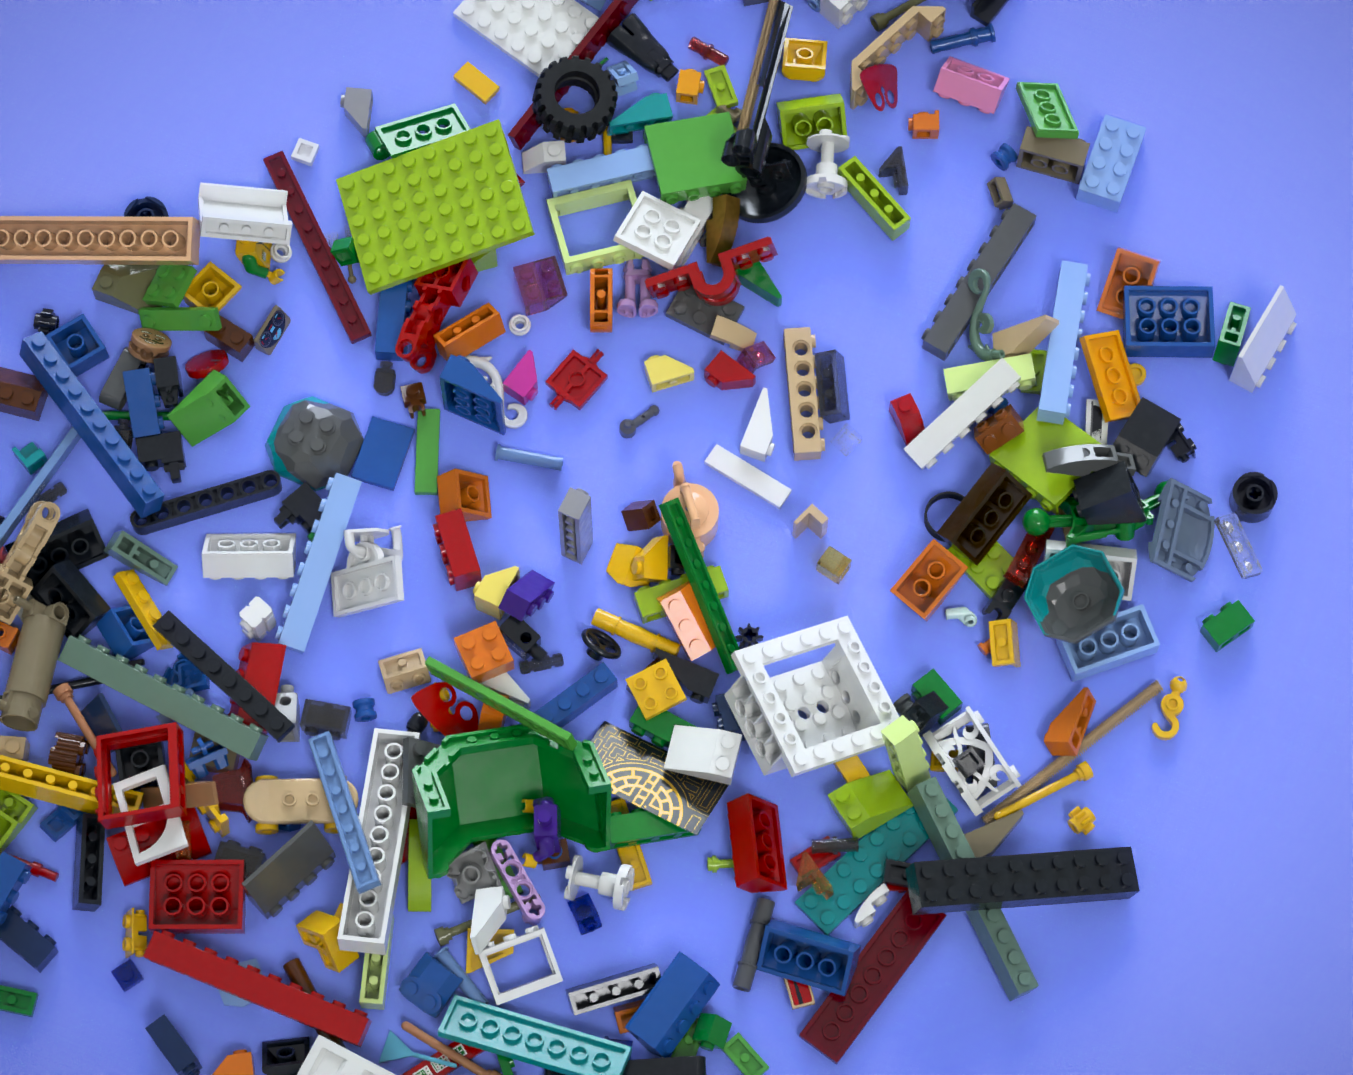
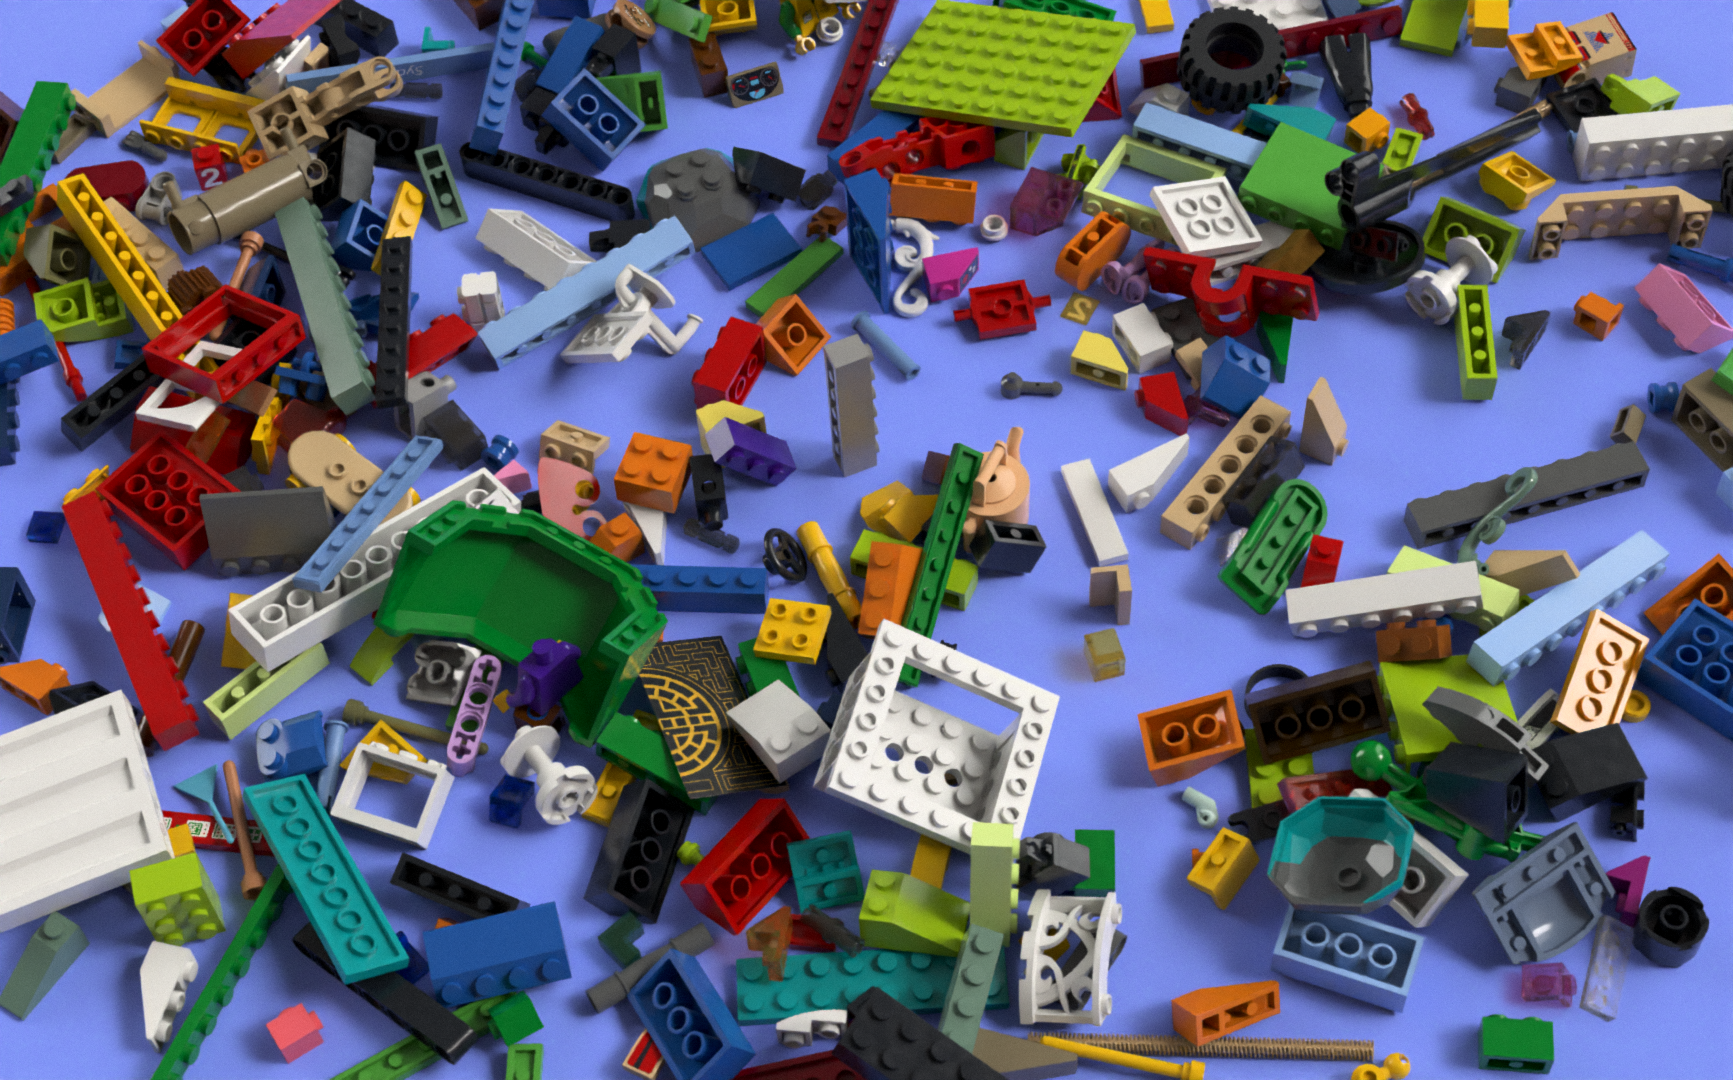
camera: 45 degrees right, 15 degrees down
(202, 364) = (667, 71): red tile -> none
(204, 438) = (593, 119): none -> blue slope
(344, 251) = (884, 59): green slope -> none
(350, 394) = (767, 174): none -> black slope
(390, 718) = (514, 477): none -> bright pink slope
(488, 915) = (404, 719): white slope -> none
(501, 703) = (618, 526): bright green tile -> none
(538, 244) = (1079, 166): none -> lime hips
(619, 342) = (1080, 308): none -> clear yellow sticker
(678, 338) = (1142, 338): none -> white brick
(686, 886) = (639, 852): none -> black slope
(721, 945) = (619, 940): none -> clear green piece
(726, 540) = (1007, 546): none -> black brick
(759, 328) = (1233, 376): none -> blue slope
(798, 814) = (826, 870): none -> teal slope
(838, 325) = (1323, 425): none -> tan slope
(870, 421) = (1275, 545): none -> green piece
(880, 76) = (1574, 228): piece -> none
(968, 762) = (1057, 950): tile -> none
(1215, 486) = (1629, 883): none -> magenta slope
(1216, 578) = (1548, 983): none -> clear pink bracket

